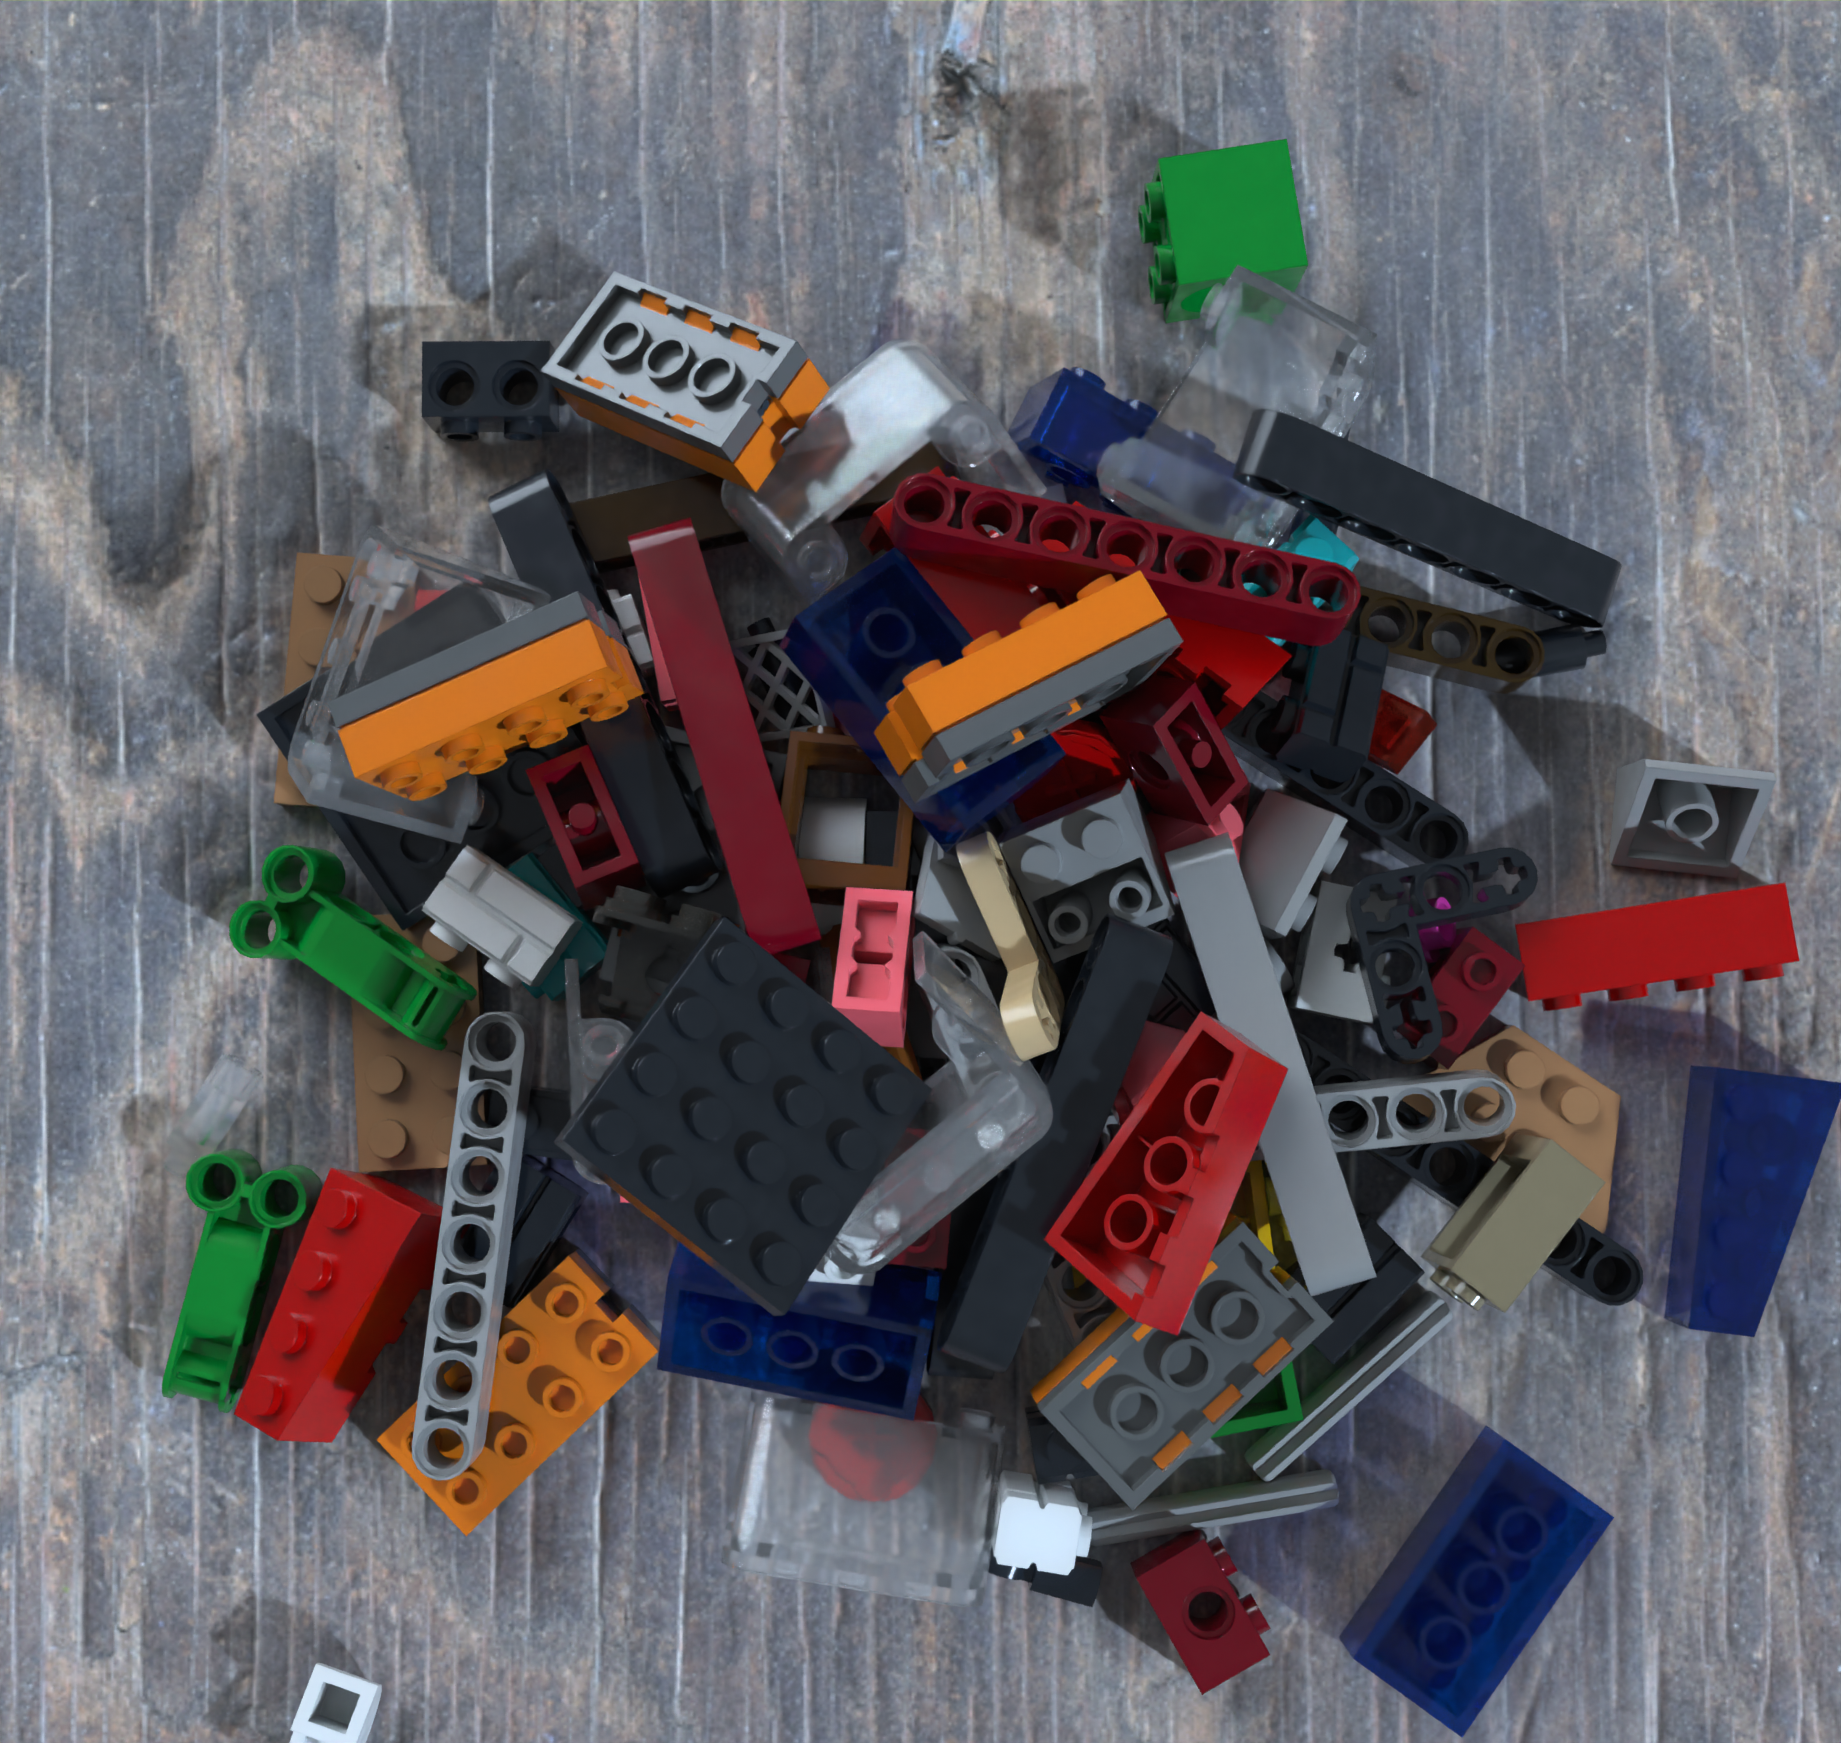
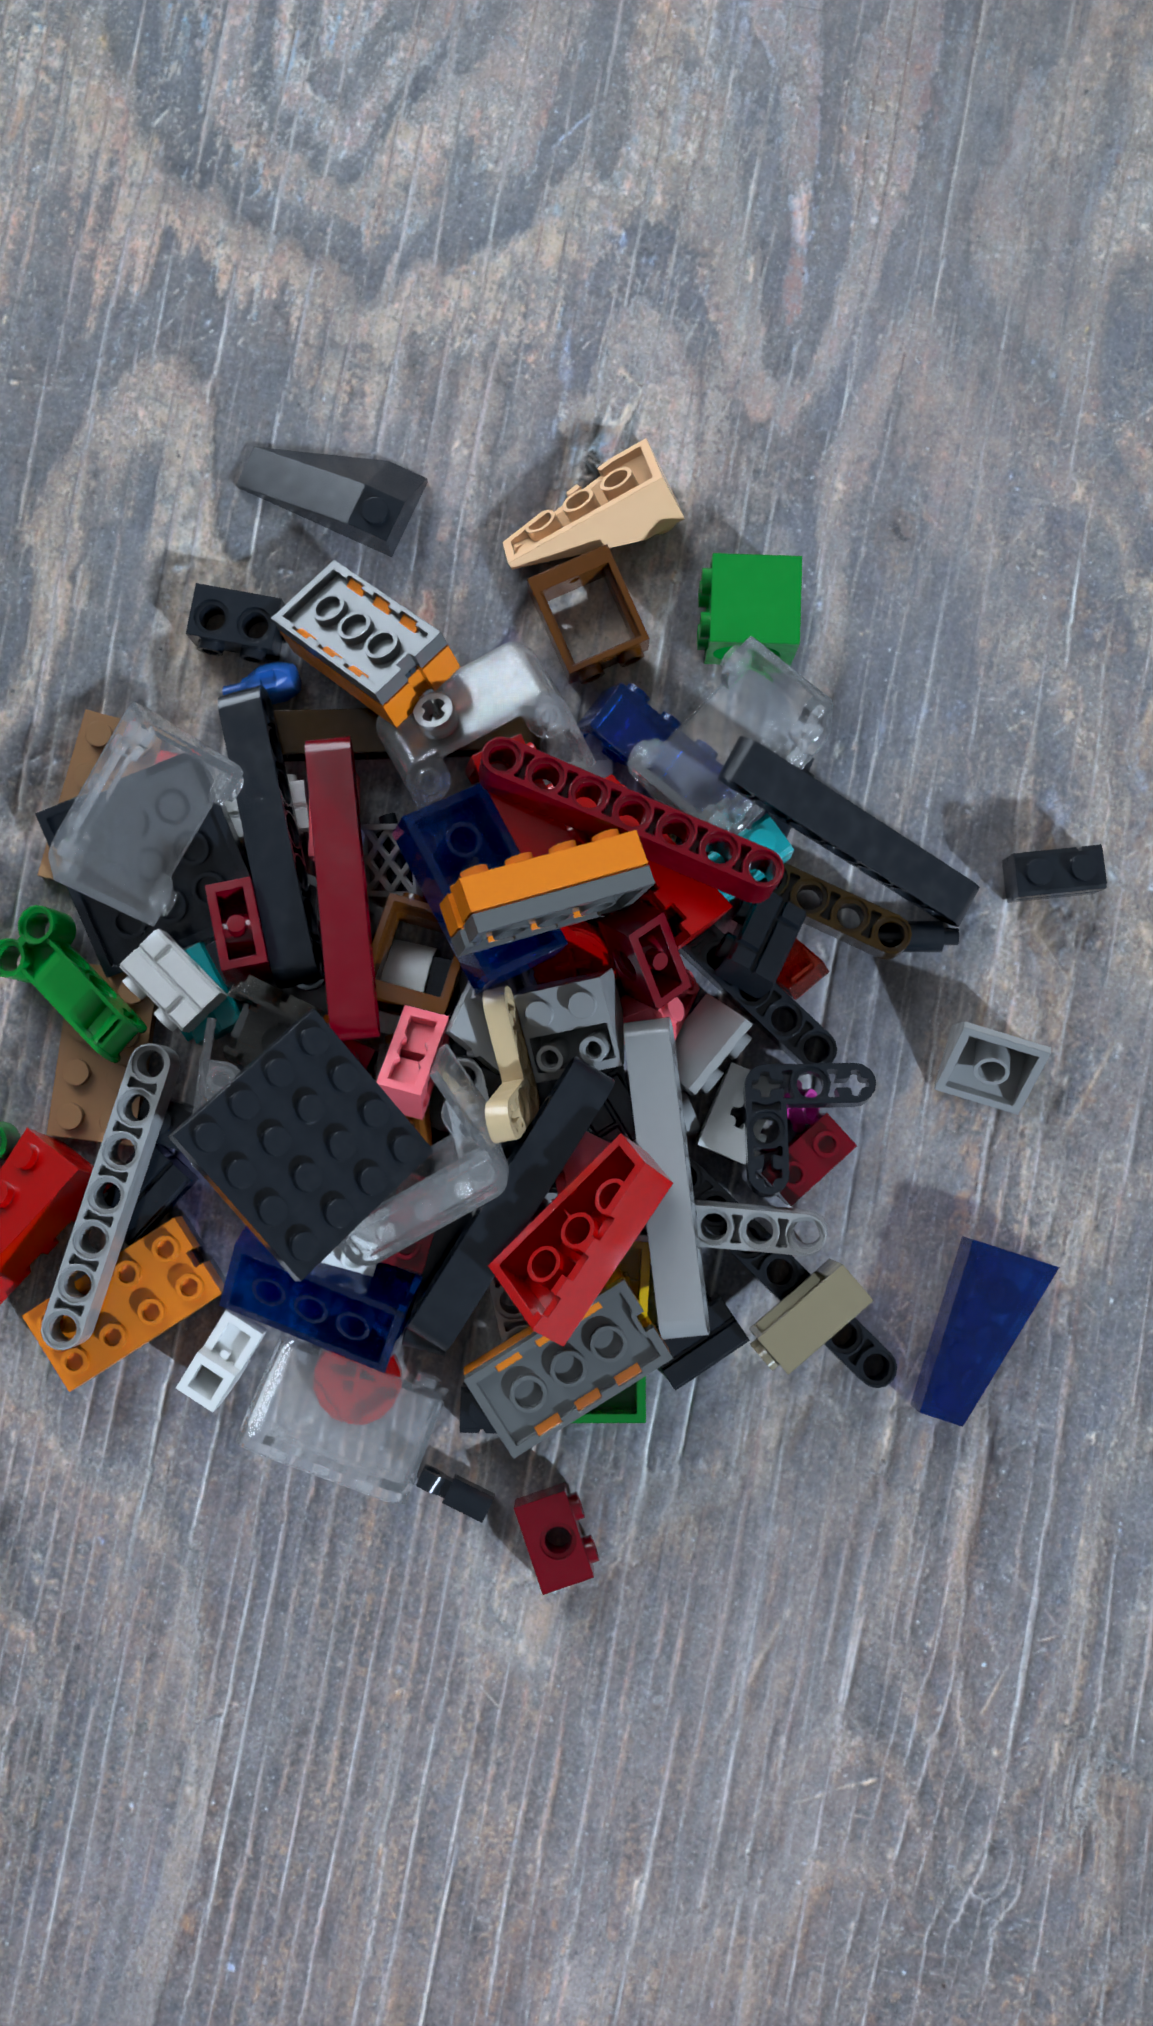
camera: 15 degrees right, 0 degrees up
(487, 699) = (187, 833): orange piece -> none
(565, 454) = (278, 678): none -> blue piece
(609, 178) = (346, 494): none -> black wedge
(674, 1446) = (221, 1360): none -> white brick
(805, 446) = (436, 728): none -> light grey bush
(958, 230) = (573, 575): none -> reddish brown window
(1005, 121) = (616, 509): none -> light nougat wedge
(1039, 1524) = (455, 1458): white brick -> none
(1214, 1507) = (576, 1472): light grey axle -> none
(1350, 1385) = (685, 1407): light grey axle -> none
(1474, 1581) = (742, 1554): clear blue brick -> none
(1551, 1103) = (857, 1242): medium nougat wing -> none
(1658, 943) = (948, 1147): red wedge -> none
(1723, 525) = (1054, 873): none -> black brick

